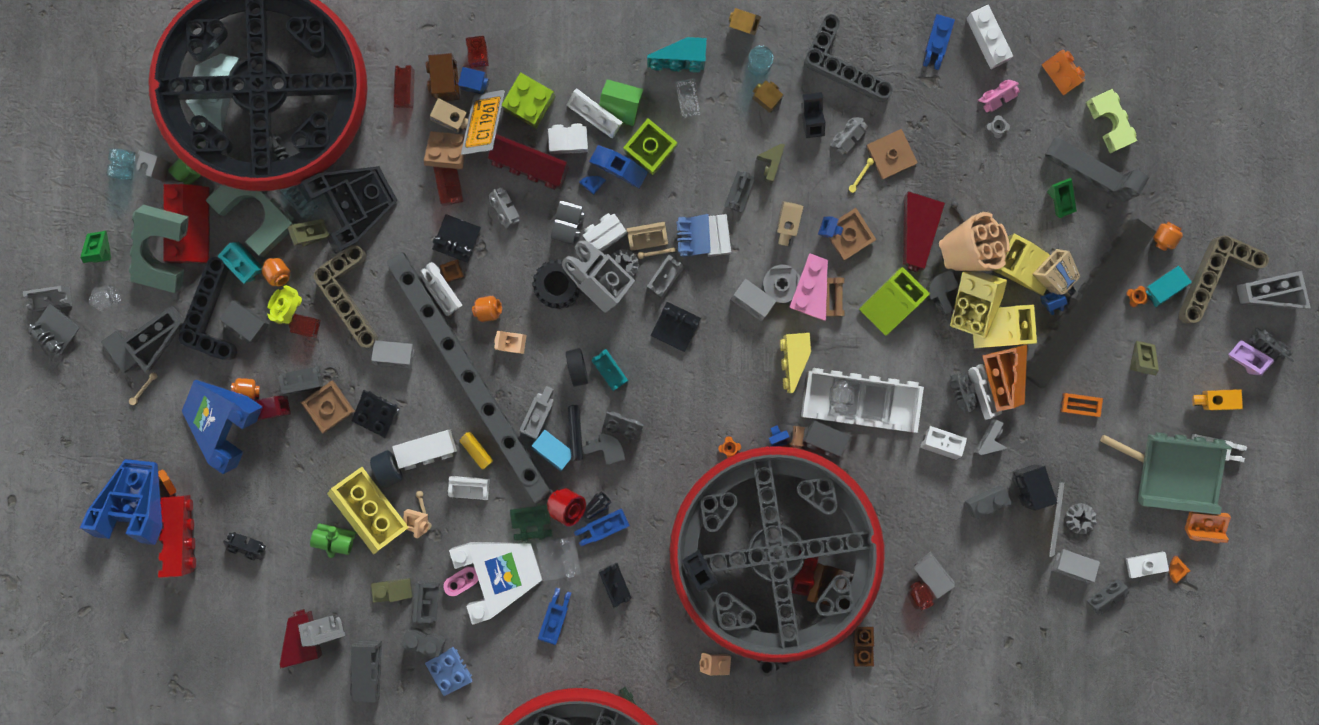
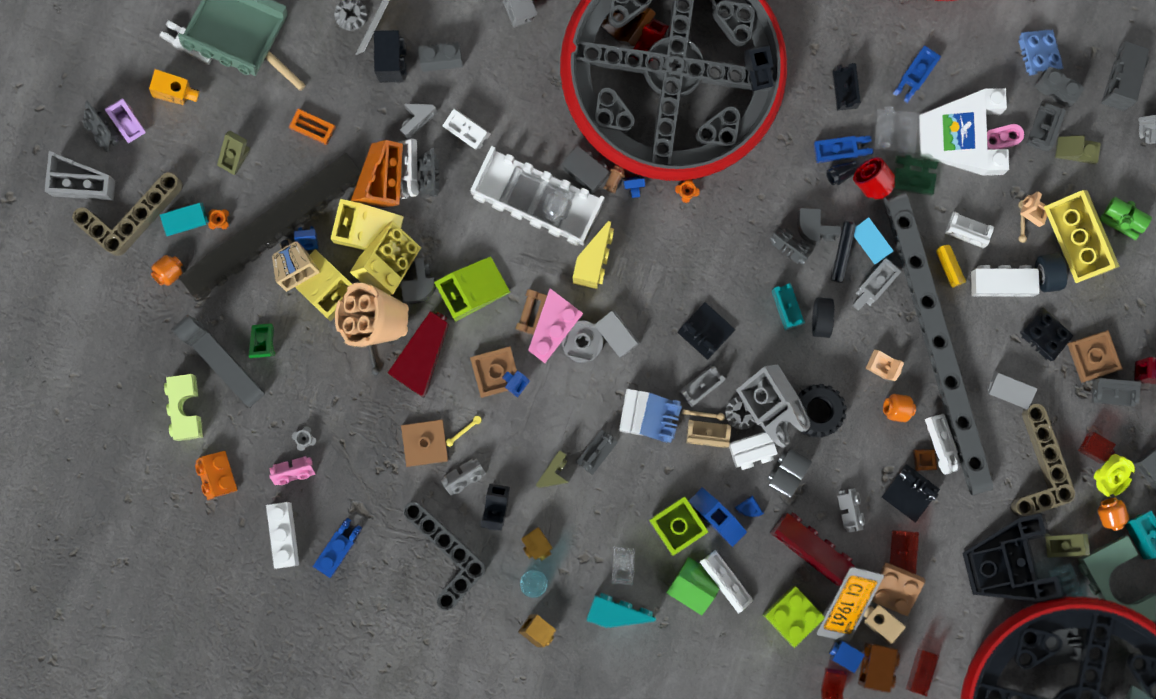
camera: 160 degrees left, 5 degrees down
(568, 140) = (762, 561): white brick -> none
(792, 213) = (551, 409): tan torso -> none

